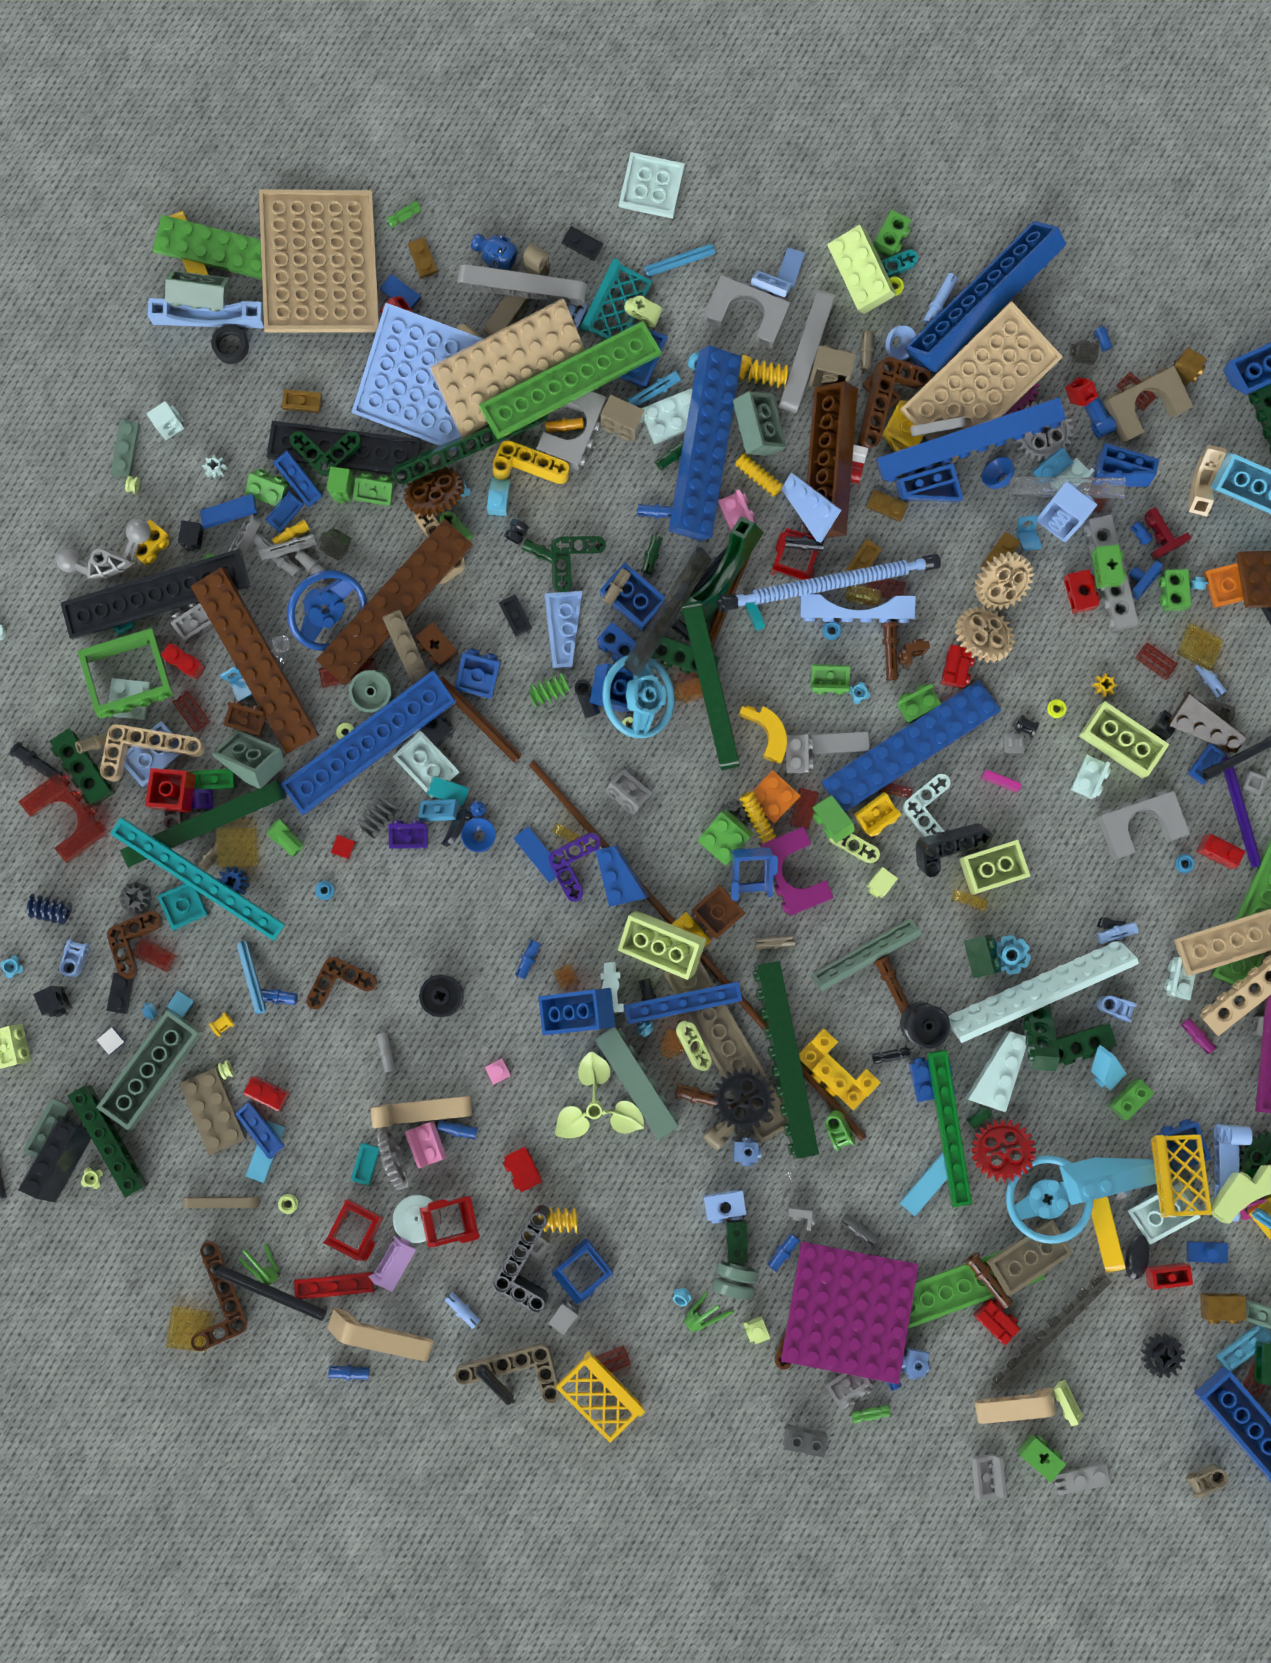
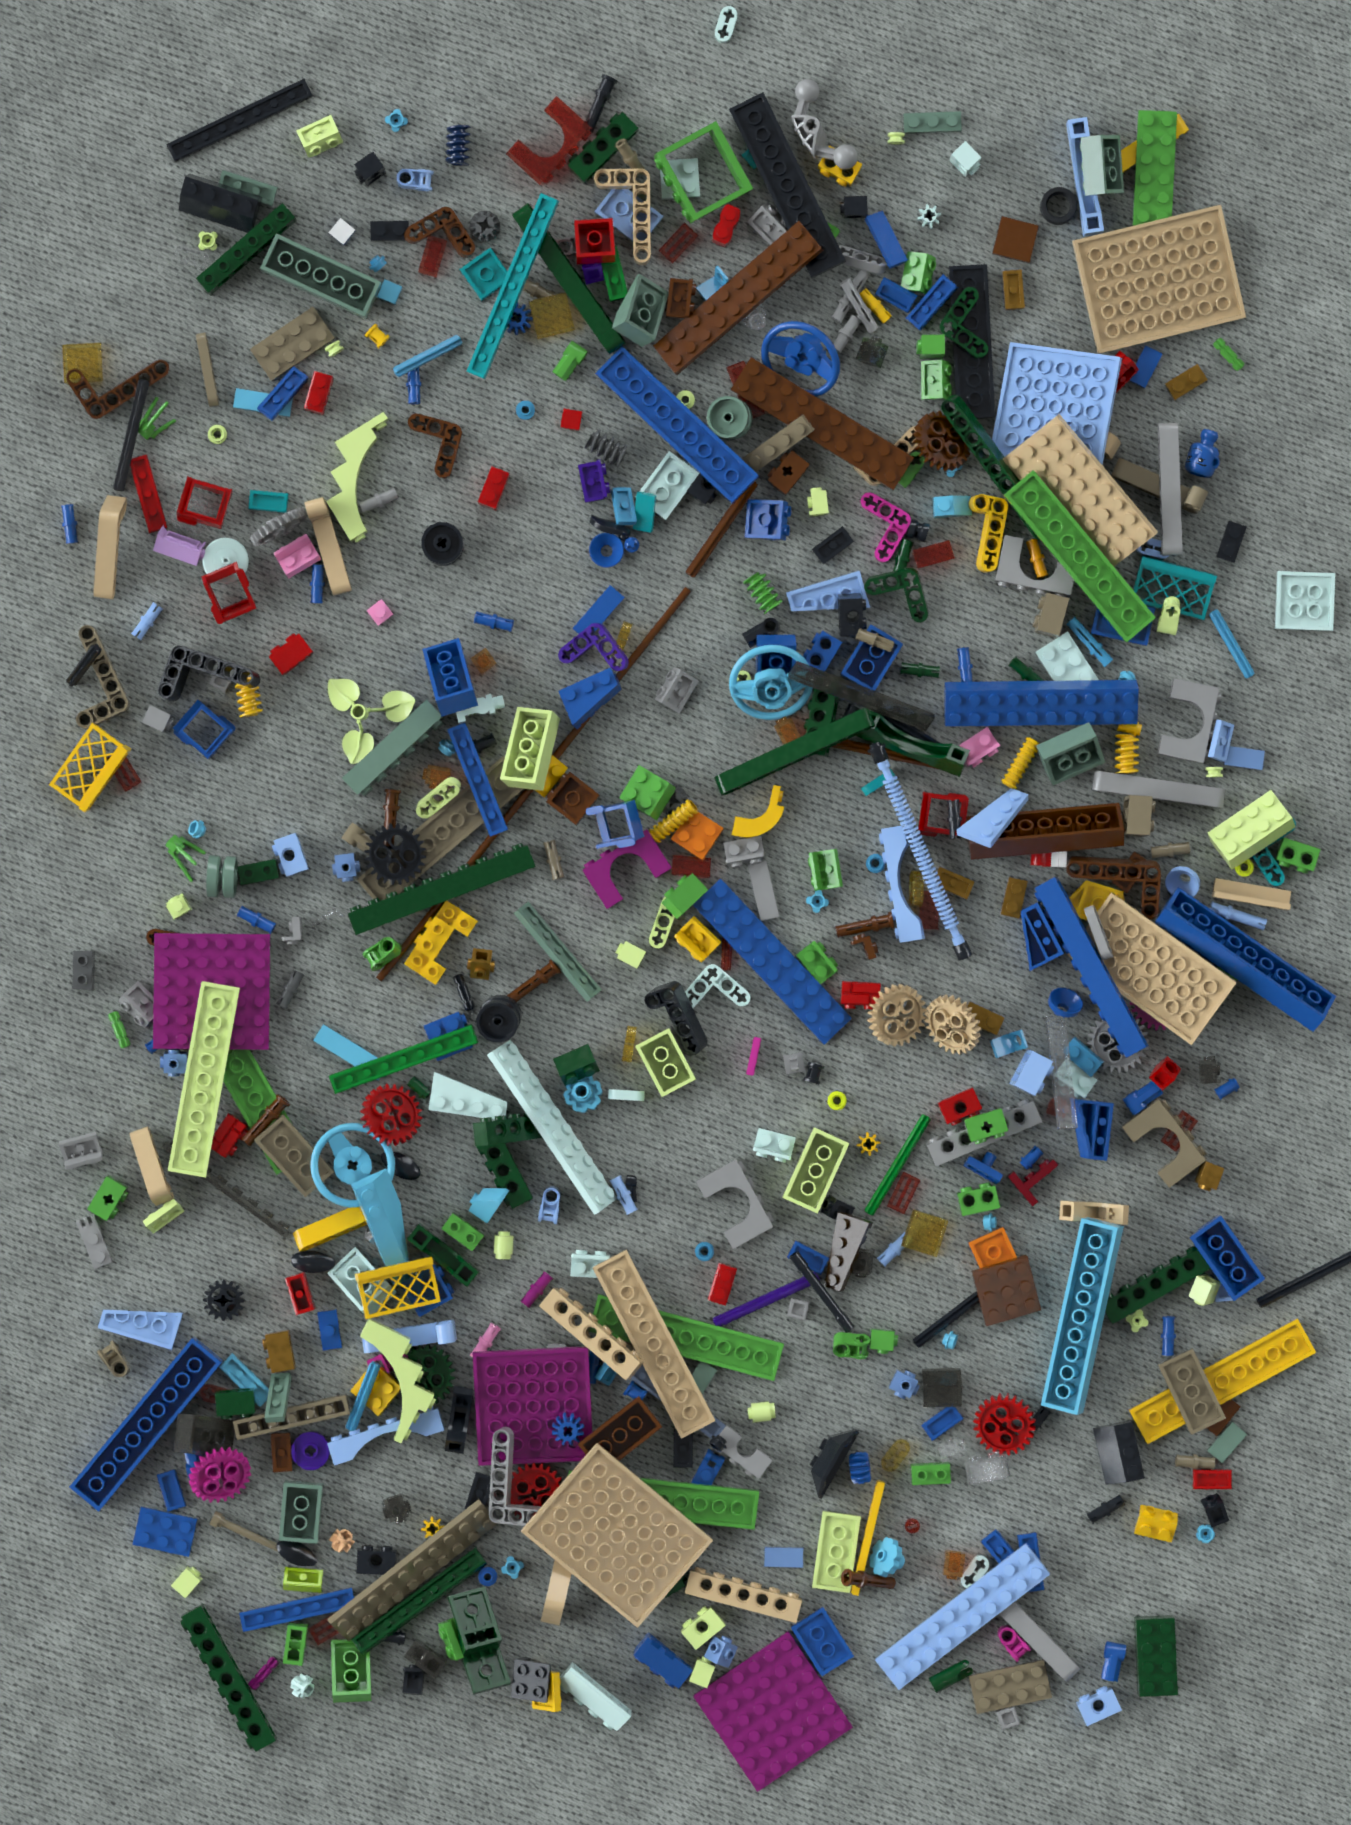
camera: 80 degrees right, 5 degrees up
(254, 391) = (1015, 239): none -> reddish brown tile
(329, 1067) = (354, 449): none -> yellowish green arch
(395, 935) = (493, 488): none -> red brick
(470, 621) = (818, 502): none -> yellowish green brick
(508, 555) = (893, 527): none -> dark pink beam
(542, 521) = (933, 554): none -> clear red plate
(575, 608) = (847, 604): none -> black brick
(799, 296) = (1214, 771): none -> yellowish green bush
(867, 1033) = (481, 964): none -> pearl gold brick
(921, 283) = (1251, 894): none -> tan fence
(939, 1337) = (203, 1079): none -> yellowish green plate
(1019, 912) = (626, 1095): none -> light aqua beam
(1055, 1146) = (404, 1166): none -> black arm
(1131, 664) = (897, 1164): none -> green axle
(1150, 1061) = (503, 1245): none -> yellowish green brick
(1162, 1112) = (443, 1254): none -> dark green arch
(1177, 1441) = (149, 1327): none -> light blue wing
(1241, 1095) = (486, 1340): none -> bright pink pin

